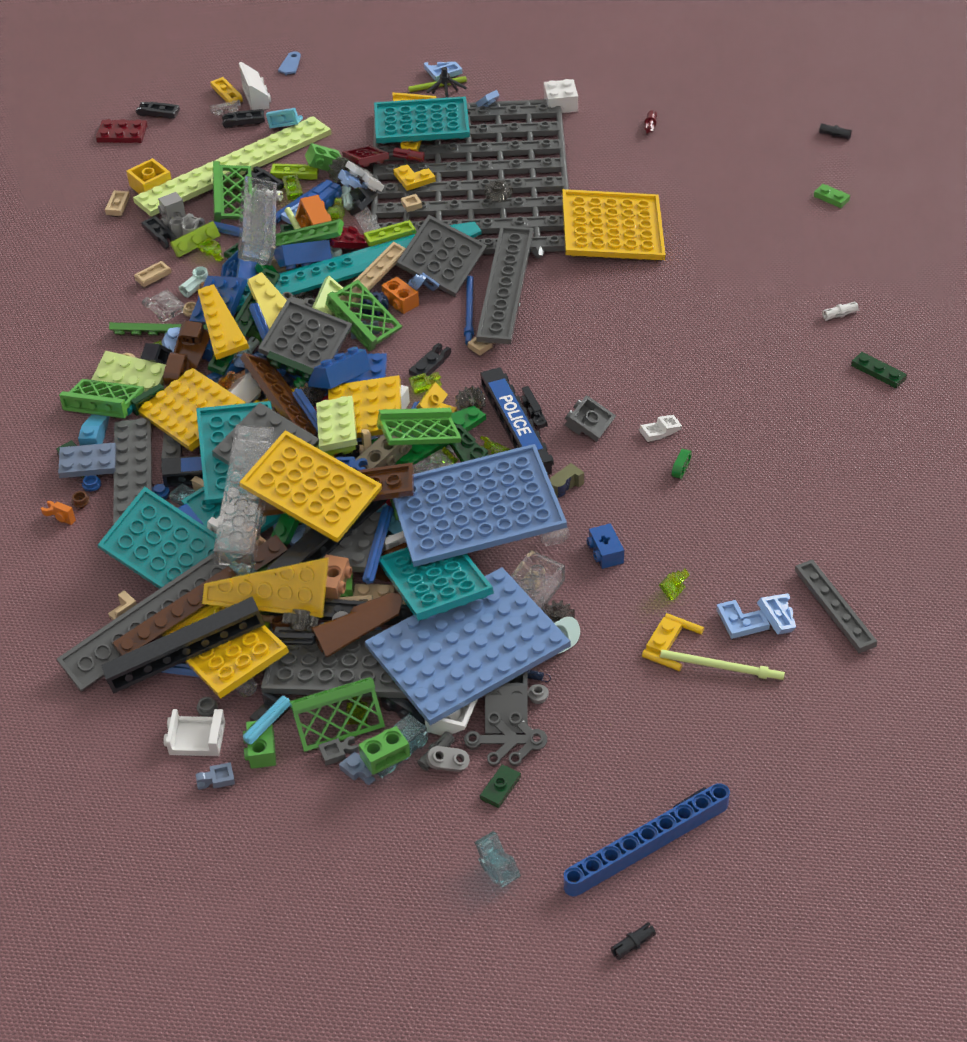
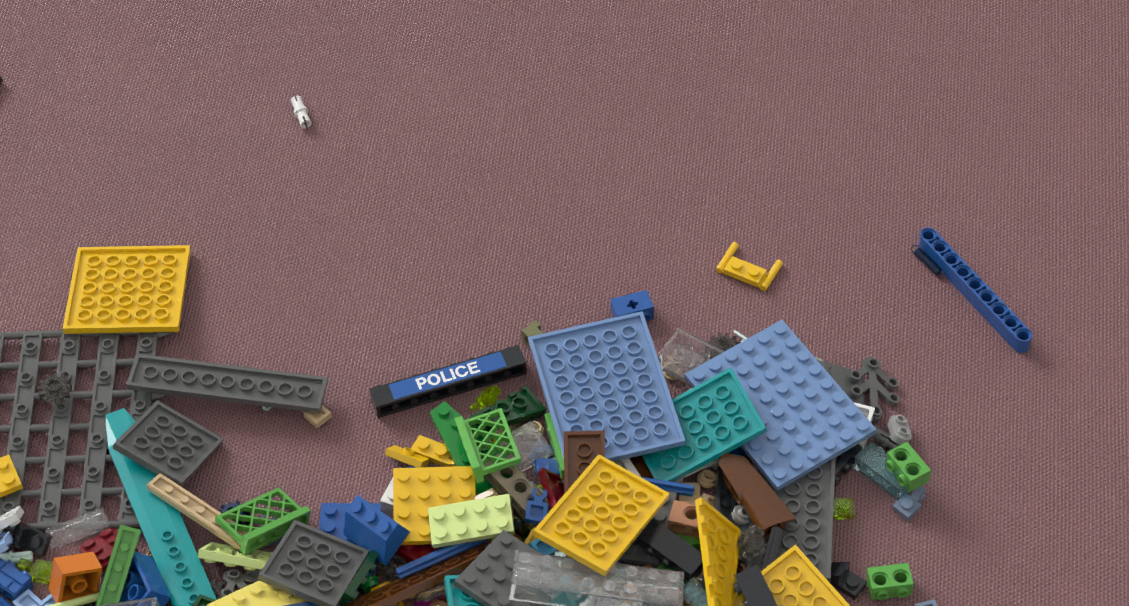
camera: 90 degrees left, 5 degrees up
(266, 720) = (873, 567): medium azure axle -> none
(332, 696) = (855, 512): bright green fence -> none
(334, 751) = (892, 521): dark grey plate -> none
(389, 233) = (116, 497): lime plate -> none
(400, 295) = (221, 489): orange brick -> none
(411, 203) = (58, 477): tan plate -> none
(421, 279) = (209, 470): medium blue bracket -> none
(423, 382) = (375, 467): clear neon green plate -> none
(430, 361) = (338, 463): black hinge -> none
(469, 330) = (290, 426): blue bar -> none
(470, 397) = (417, 417): clear smoke gear -> none
(495, 862) = (1011, 391): clear light blue brick -> none
(500, 786) = (922, 394): dark green plate -> none
(534, 409) = (428, 363): black hinge -> none
(589, 418) = (450, 318): dark grey plate -> none
(633, 941) = (1072, 304): black pin -> none
(662, 428) = (463, 263): white slope -> none
(673, 585) = (683, 261): clear neon green plate -> none
(681, 463) = (520, 247): green beam -> none
(741, 624) = (727, 217): light blue plate -> none
(762, 671) = (785, 205): yellowish green bar -> none
(778, 613) = (718, 187): light blue wing -> none
(831, 195) = (104, 103): bright green plate -> none
(836, 606) = (707, 148): dark grey plate -> none
(879, 370) = (392, 92): dark green plate -> none

